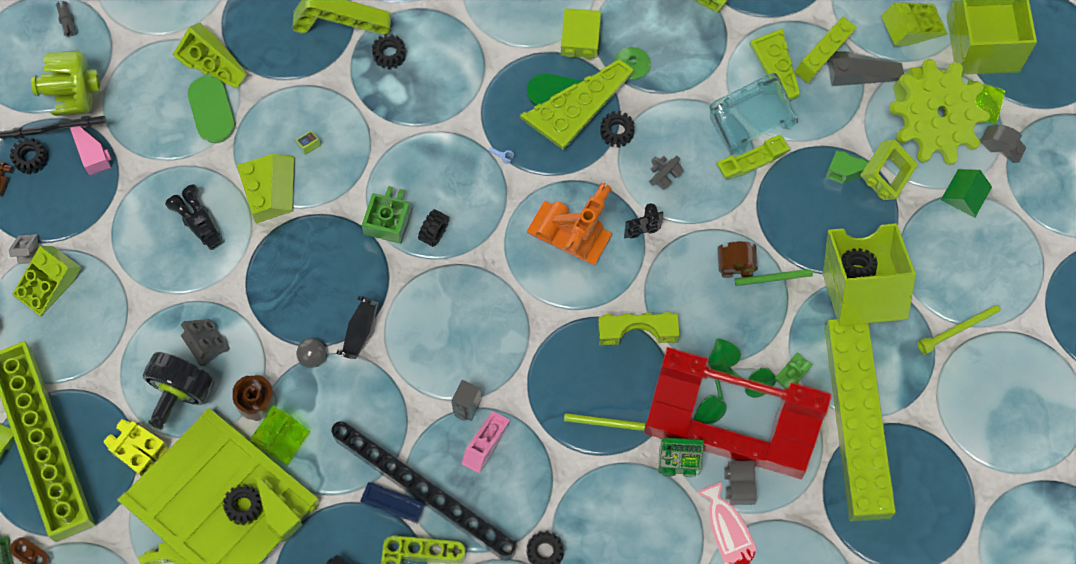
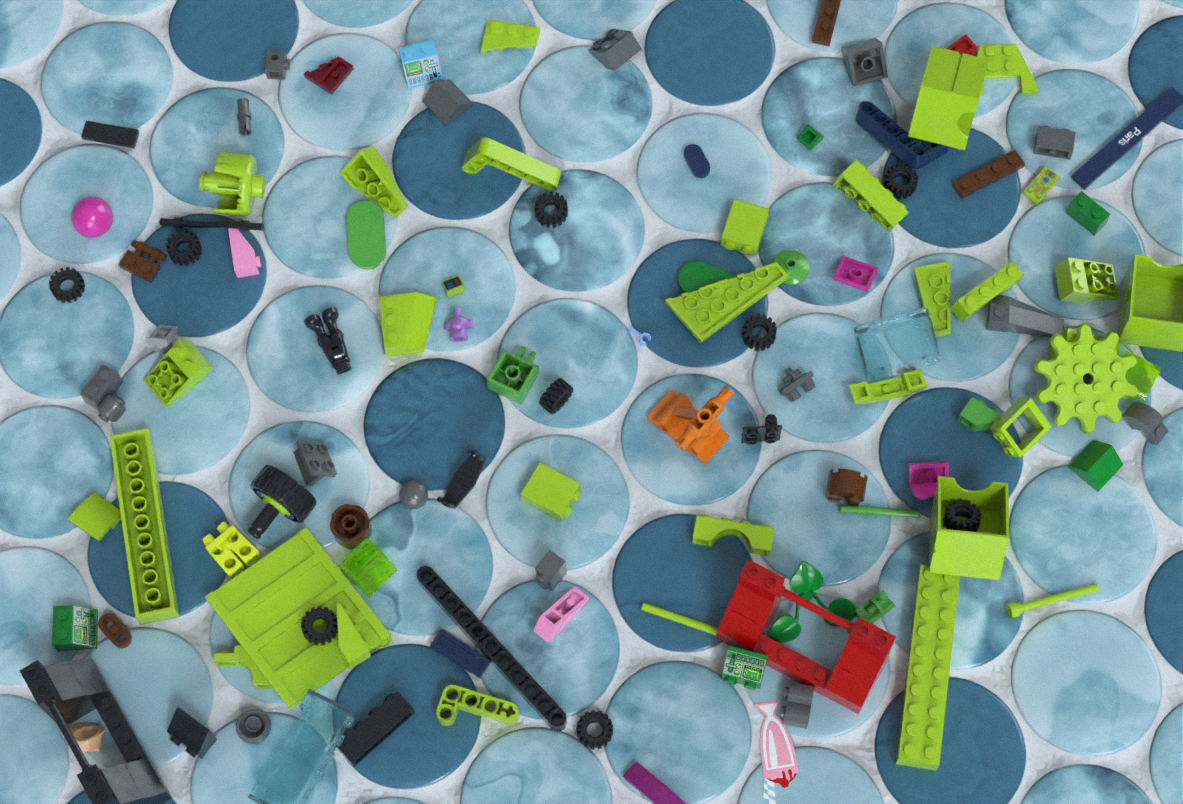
camera: 15 degrees right, 0 degrees up
(321, 179) = (458, 327): none -> medium lavender piece
(449, 323) = (551, 492): none -> lime brick
(696, 56) = (855, 274): none -> dark pink slope
(811, 236) = (924, 477): none -> dark pink bracket

